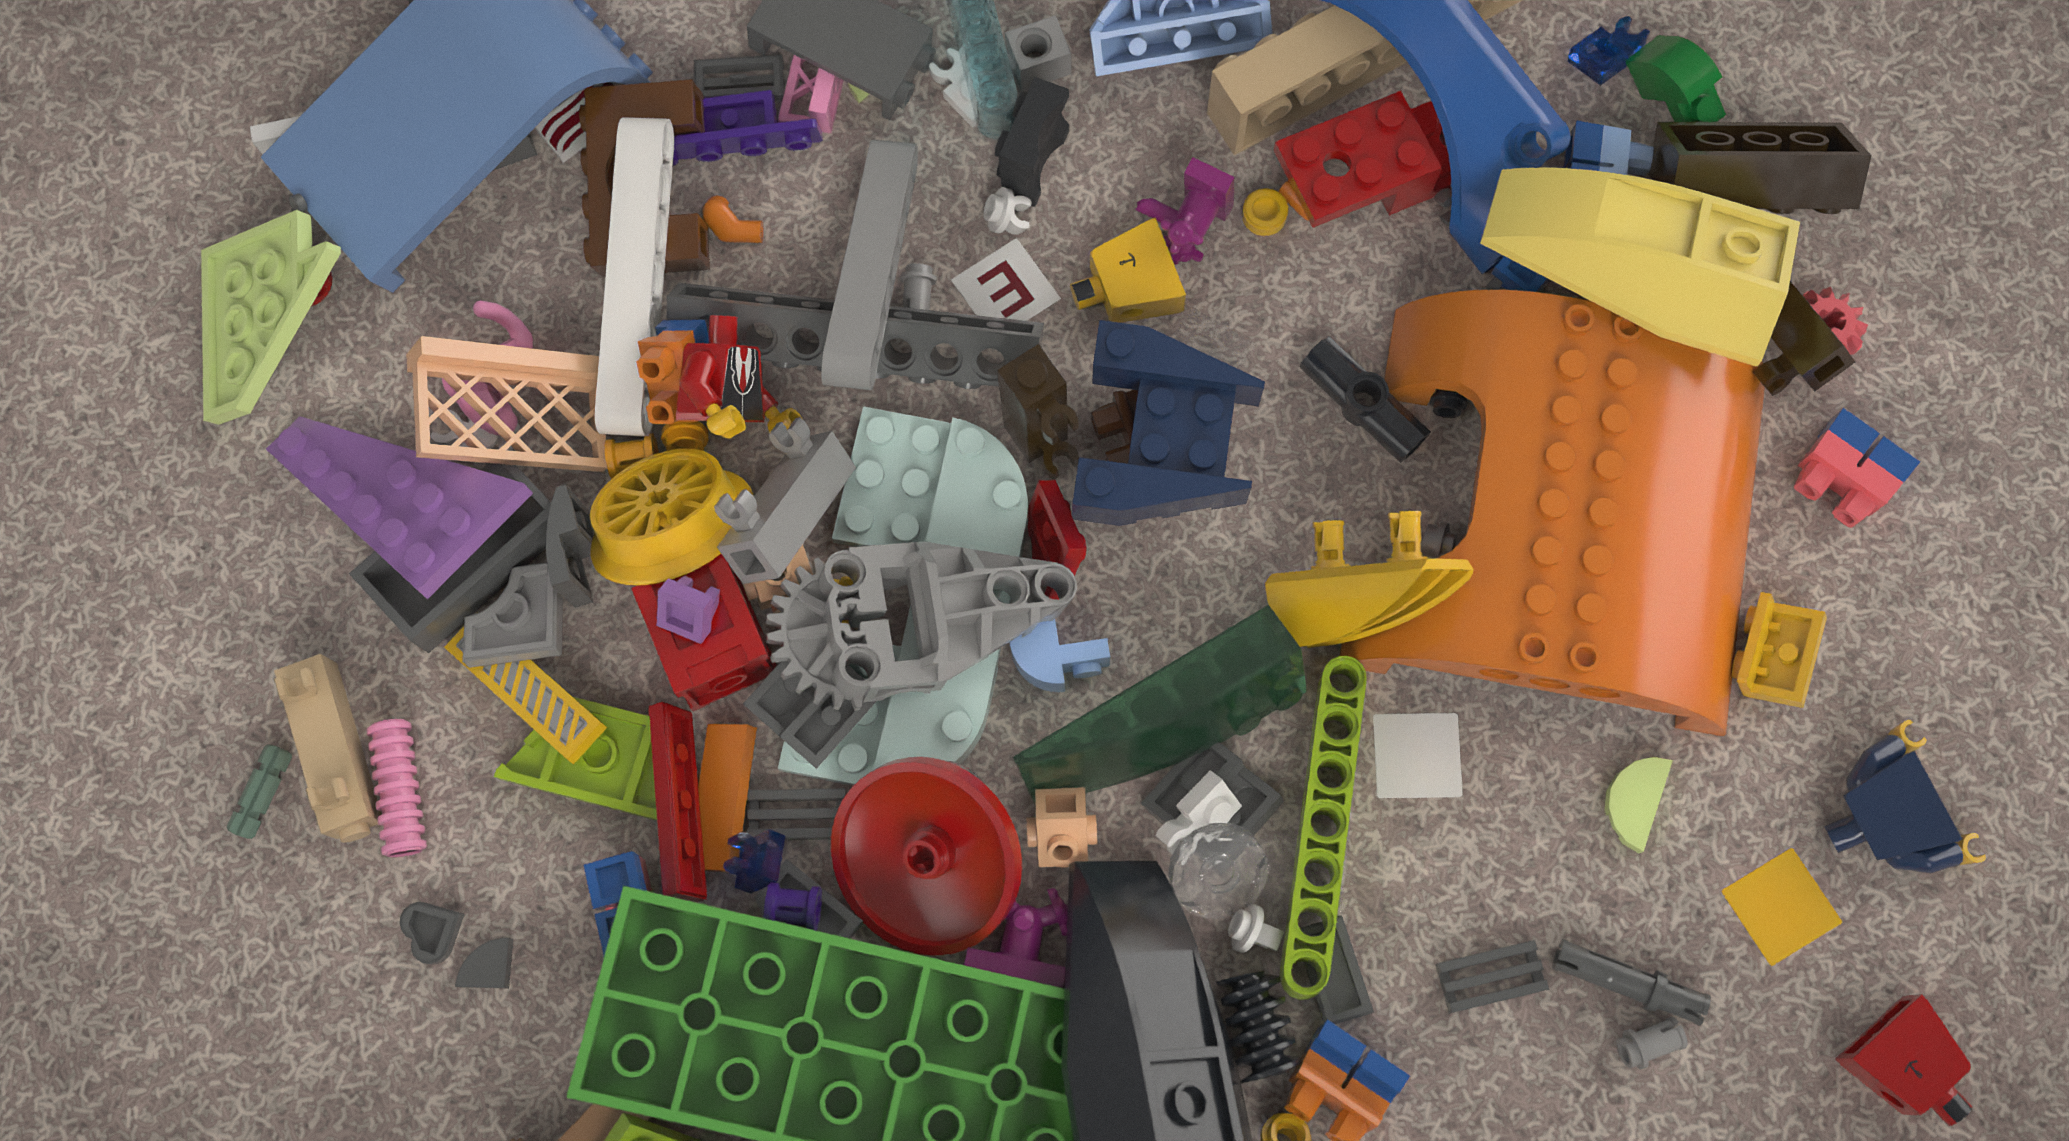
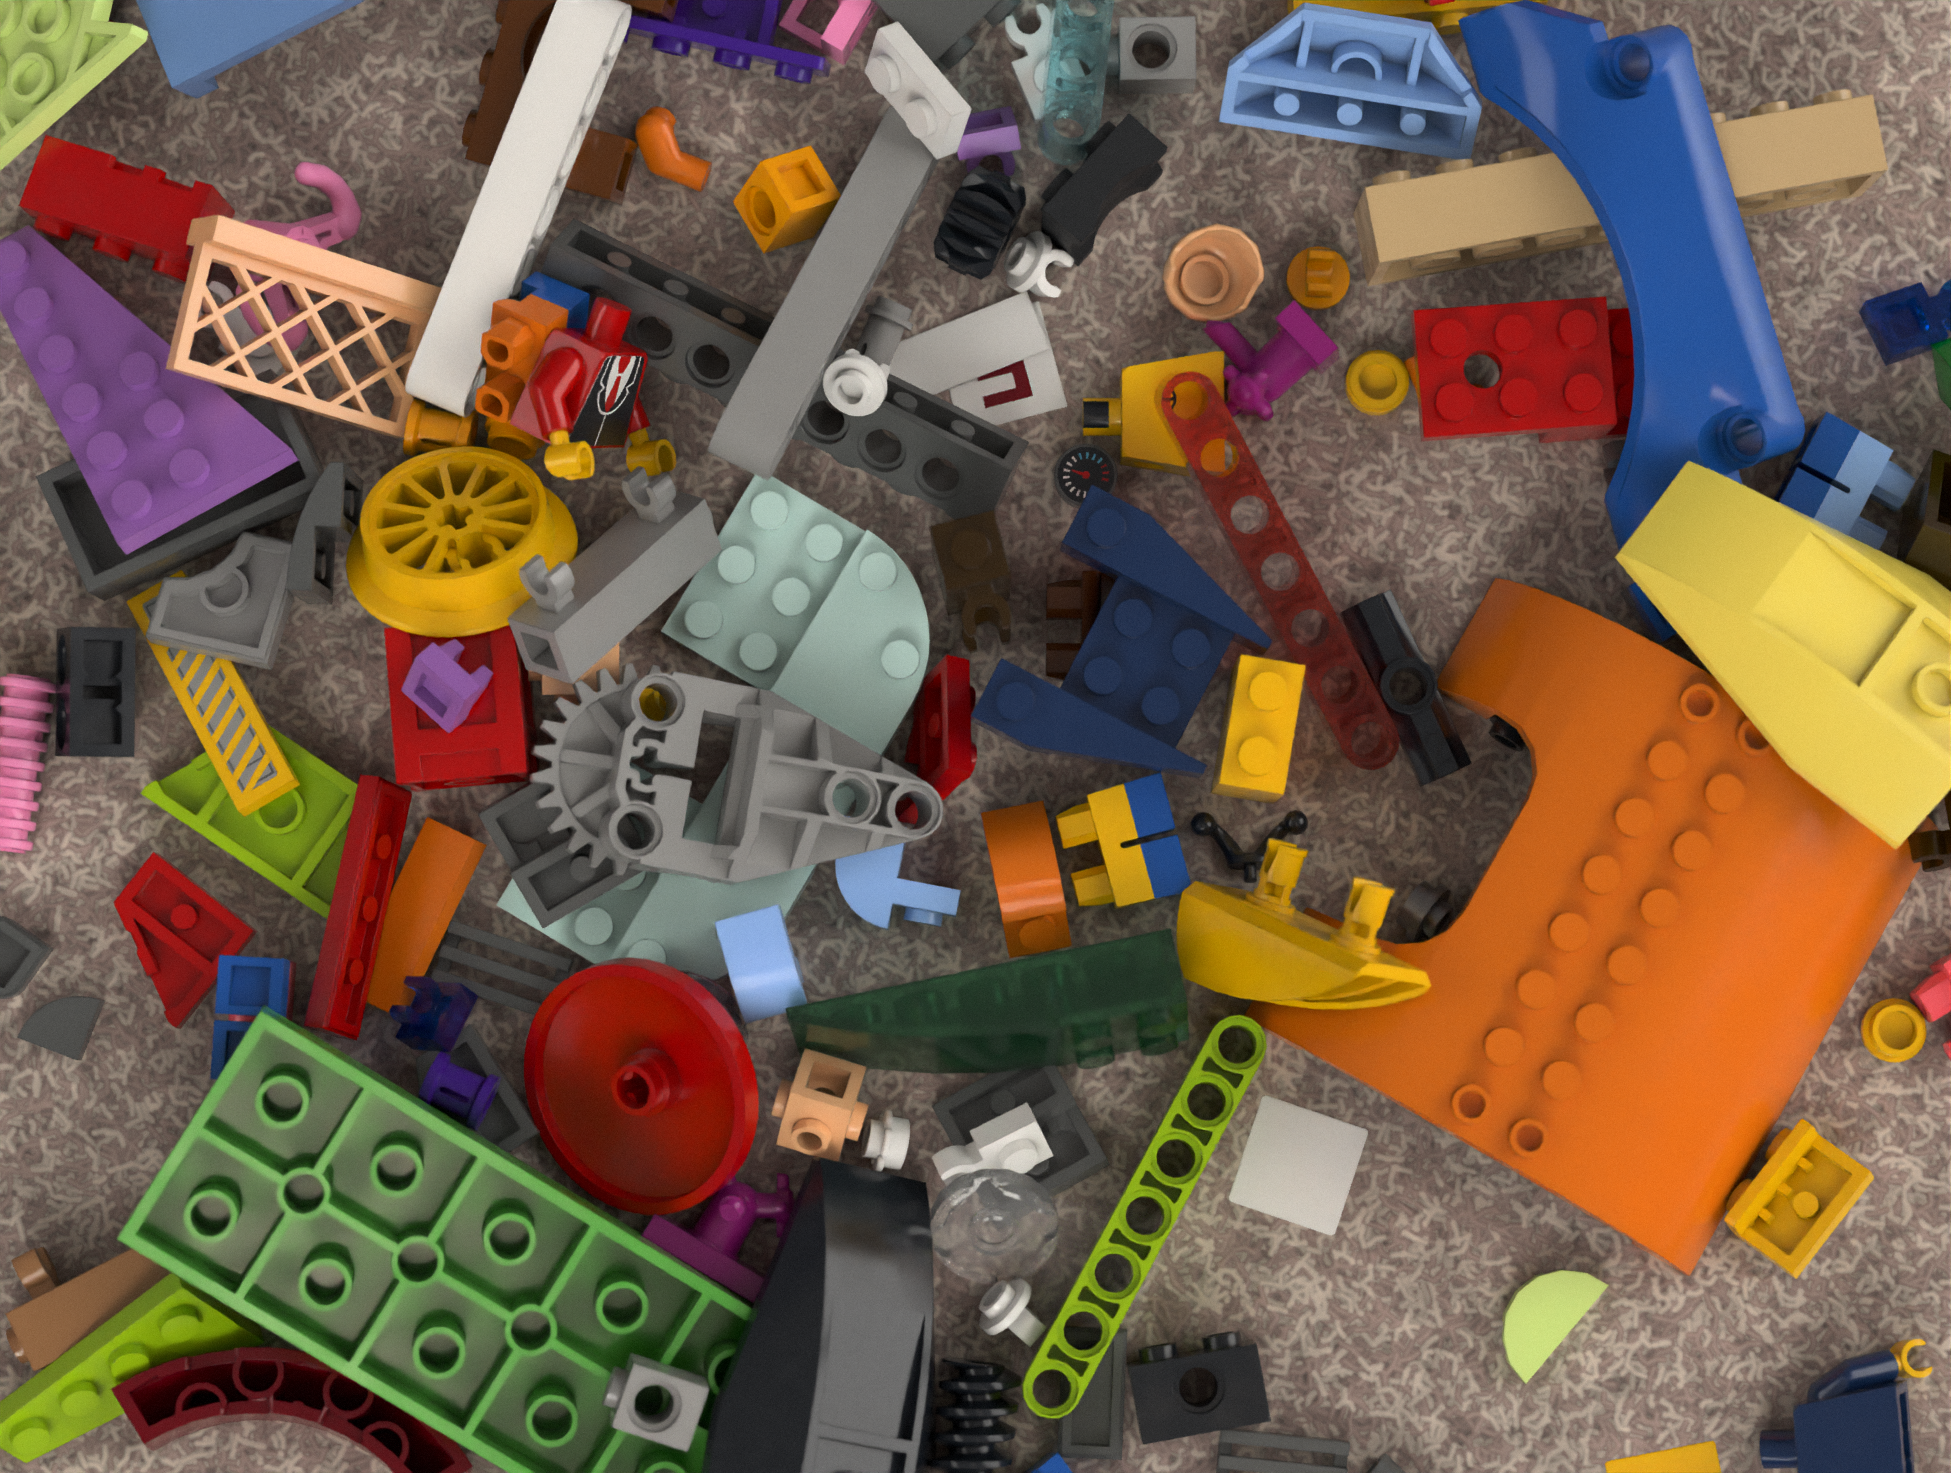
camera: 15 degrees right, 10 degrees up
(355, 380) = (118, 206): none -> red wedge
(438, 714) = (95, 692): none -> black brick
(551, 869) = (179, 934): none -> red wing
(820, 221) = (787, 199): none -> light orange brick
(886, 119) = (917, 90): none -> white plate
(910, 314) = (855, 383): none -> white plate
(943, 140) = (990, 134): none -> medium lavender tile
(958, 192) = (979, 222): none -> black gear
(982, 278) = (970, 346): none -> white sticker
(982, 734) = (761, 963): none -> light blue brick
(1040, 1081) = (675, 1423): none -> light grey brick
(1083, 336) = (1081, 468): none -> black tile
(1117, 838) = (886, 1141): none -> white plate
(1128, 173) = (1212, 273): none -> light nougat hair
(1149, 614) = (1026, 879): none -> orange brick
(1200, 148) = (1318, 278): none -> light orange plate
(1215, 566) = (1119, 817): none -> yellow hips
(1238, 321) = (1301, 590): none -> clear red beam
(1275, 453) = (1258, 729): none -> yellow brick
(1293, 557) = (1204, 825): none -> black piece
(1439, 930) = (1236, 1400): none -> black brick
(1794, 515) = (1893, 1030): none -> yellow plate

